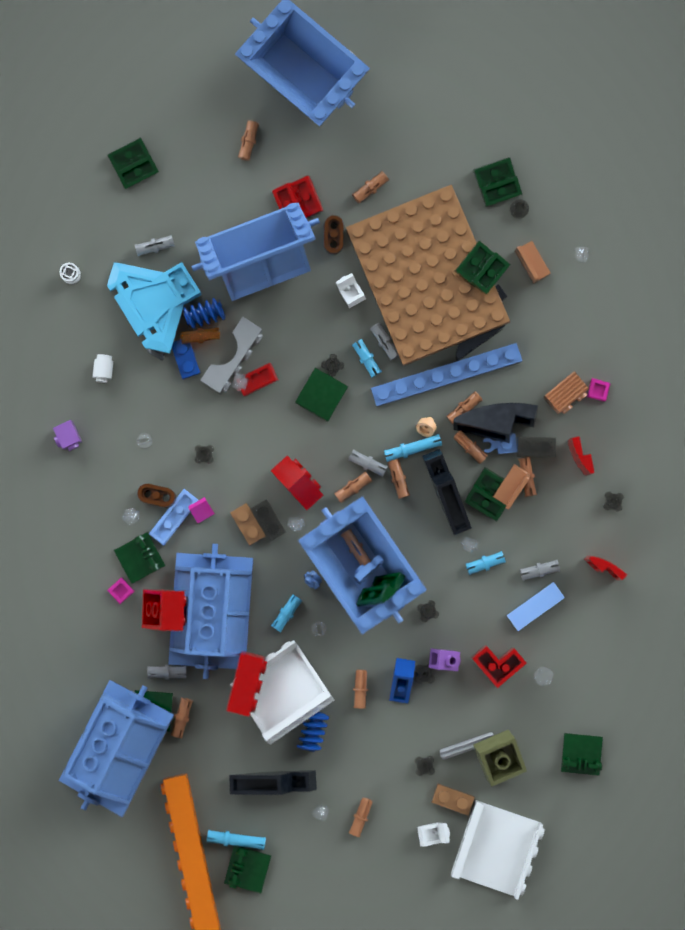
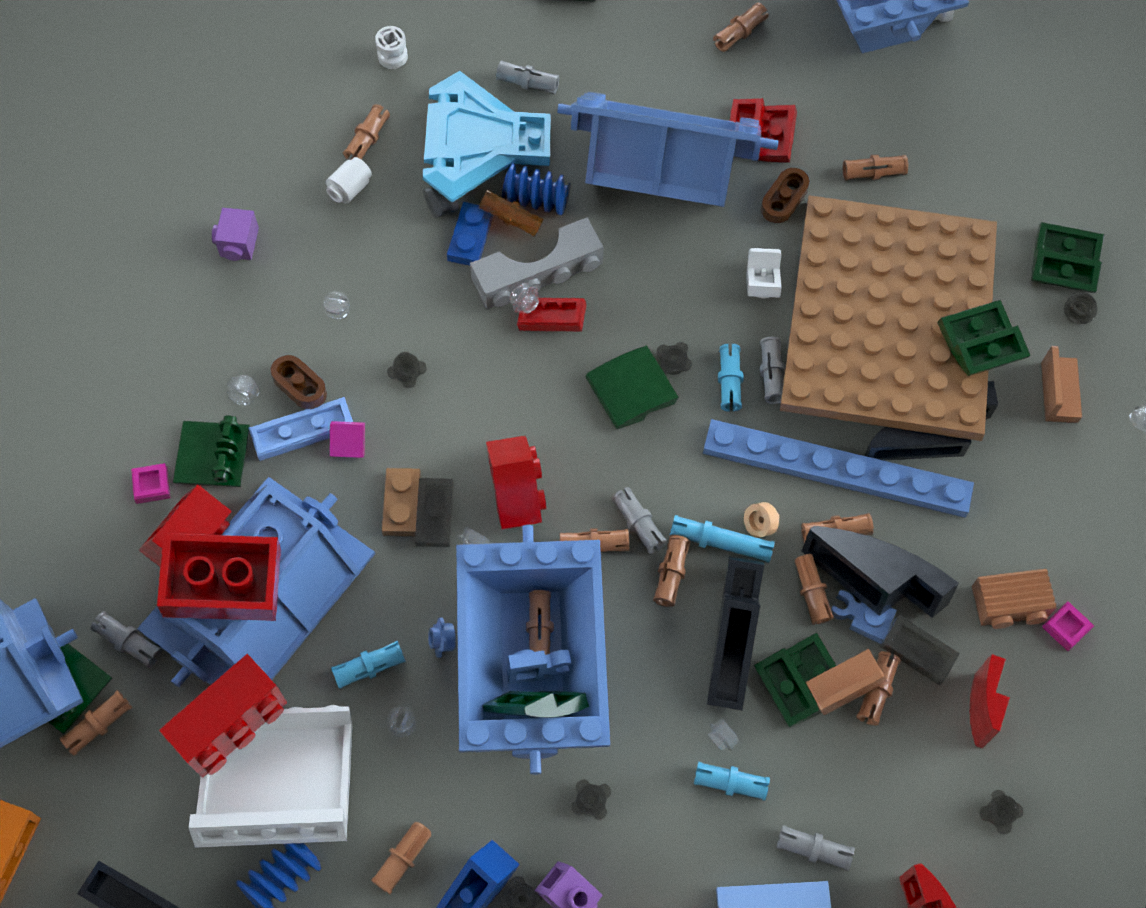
camera: 30 degrees right, 20 degrees down
(92, 333) = (367, 132): none -> nougat pin
(206, 628) = (219, 577): none -> red brick

